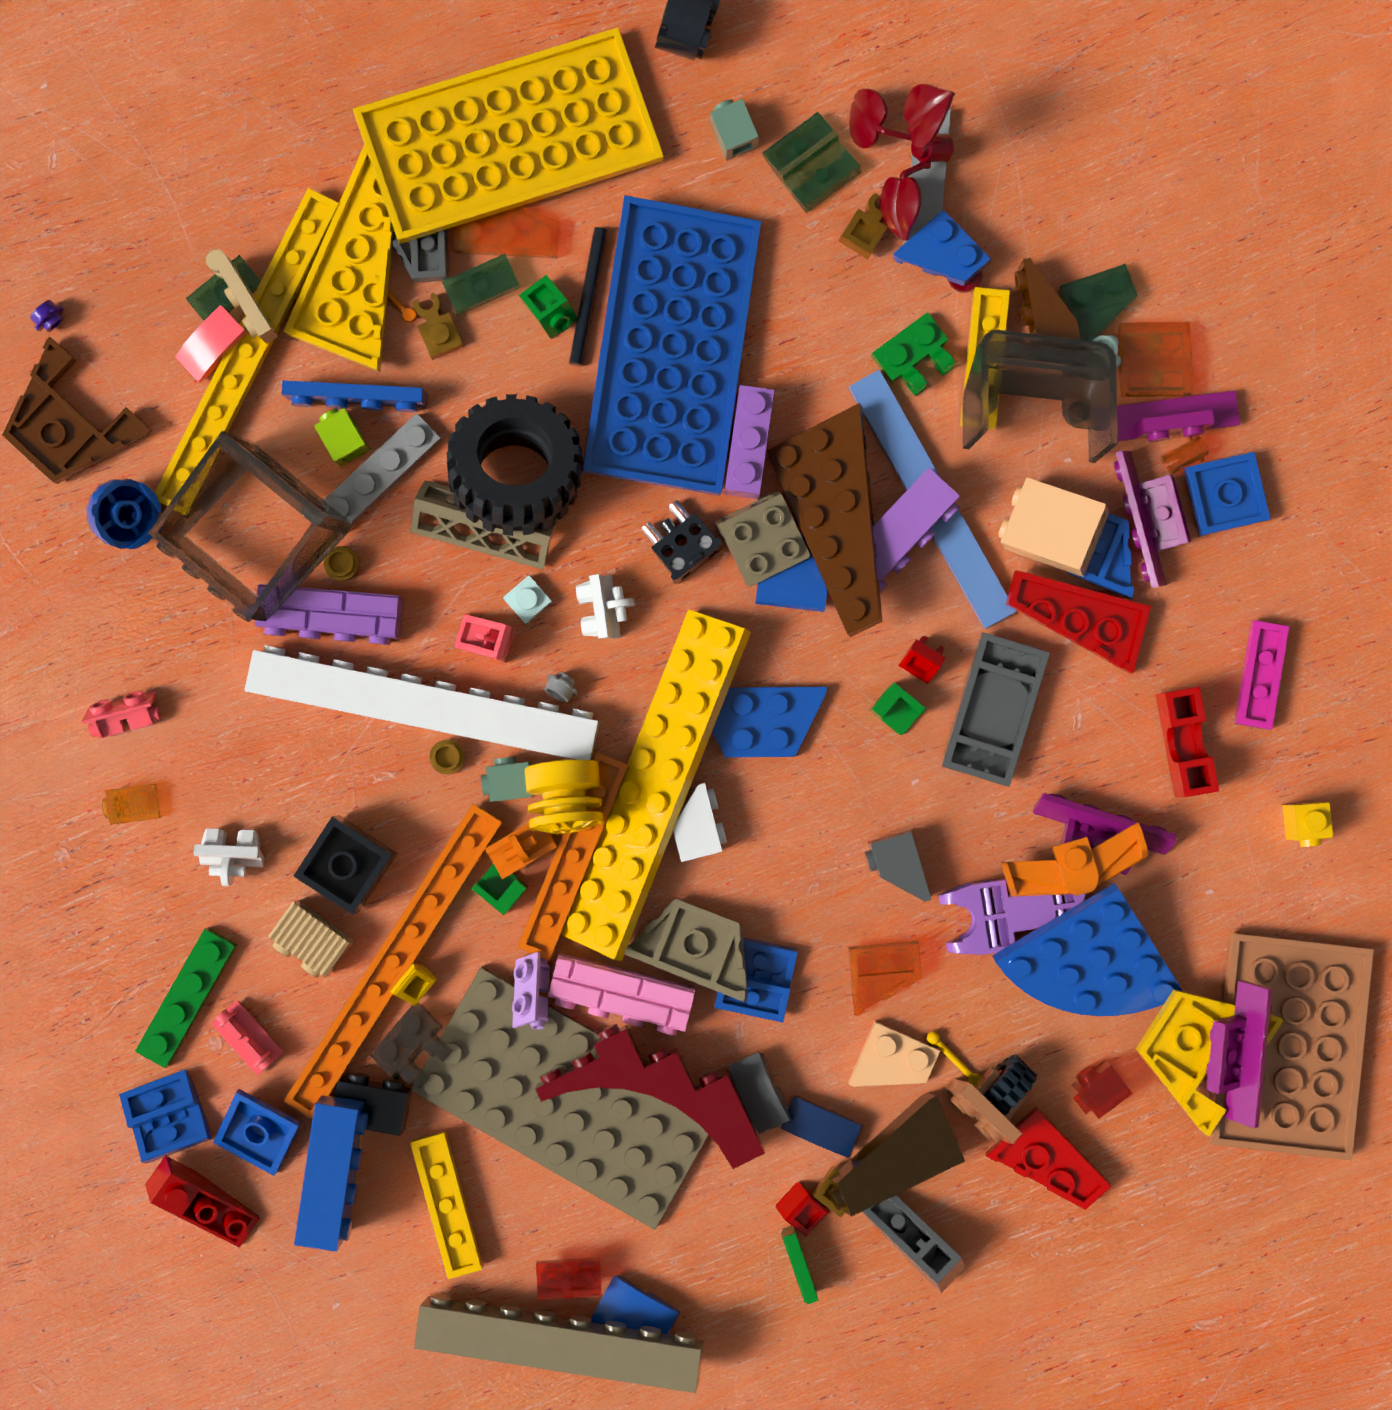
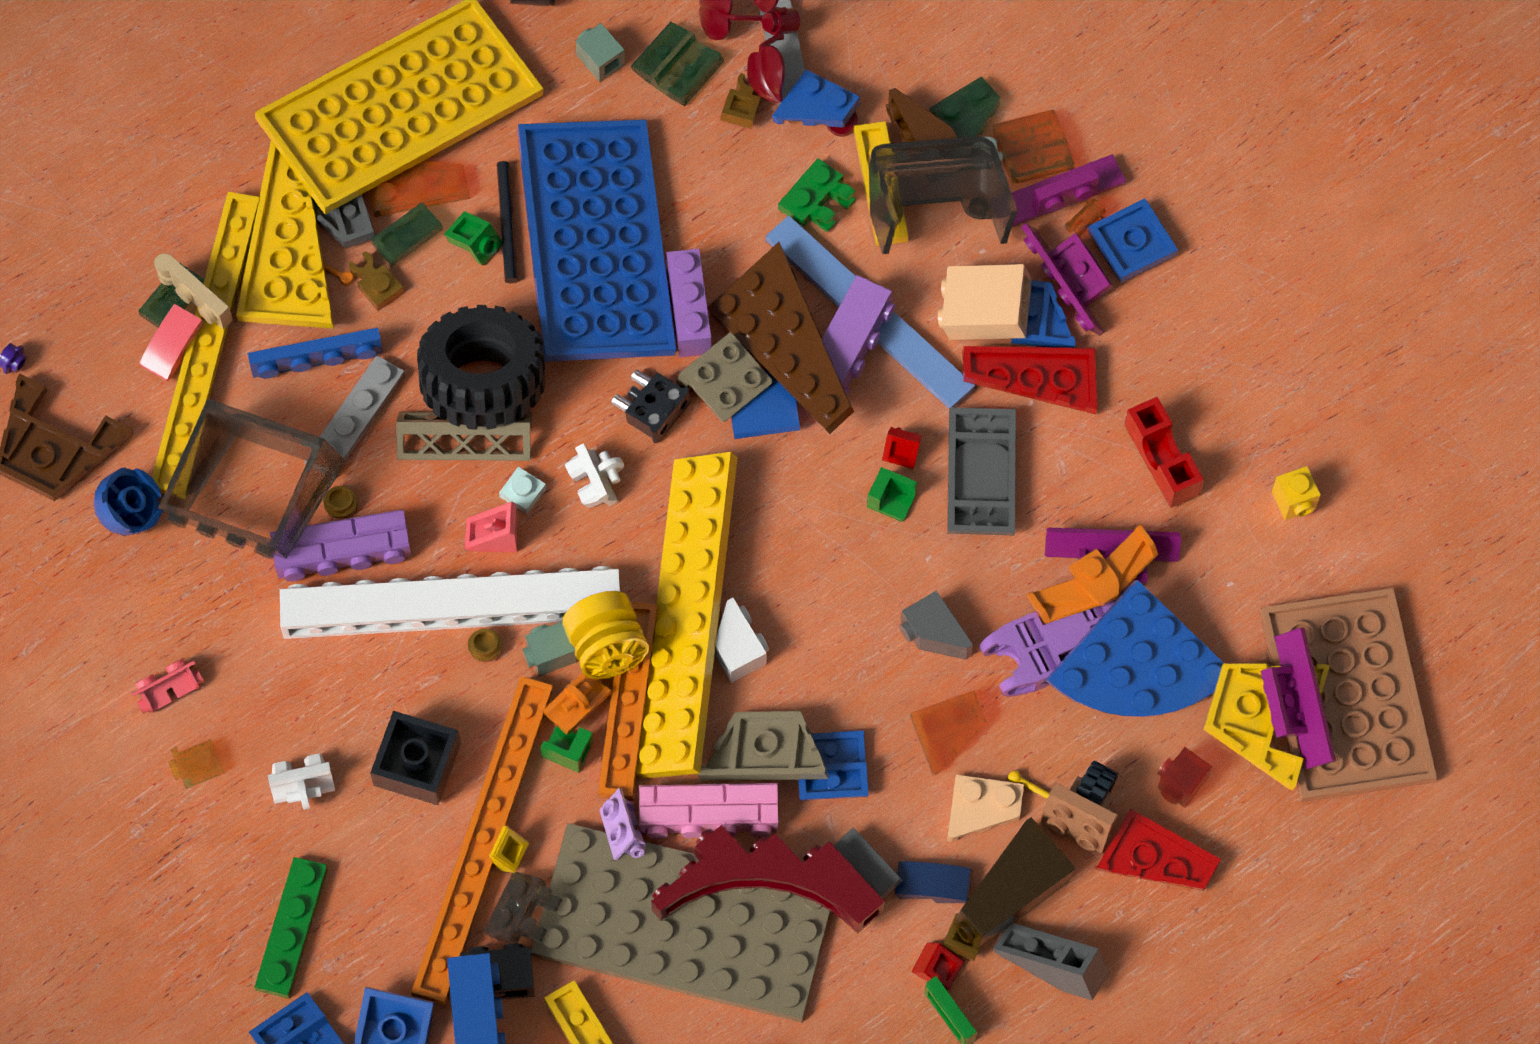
camera: 20 degrees left, 20 degrees down
(247, 1037) = (359, 947): coral hinge -> none
(310, 939) = (399, 838): tan brick -> none
(341, 436) = (313, 391): lime brick -> none
(560, 687) = (574, 555): light grey plate -> none
(766, 720) = (773, 538): blue wing -> none
(1261, 675) = (1214, 383): dark pink plate -> none

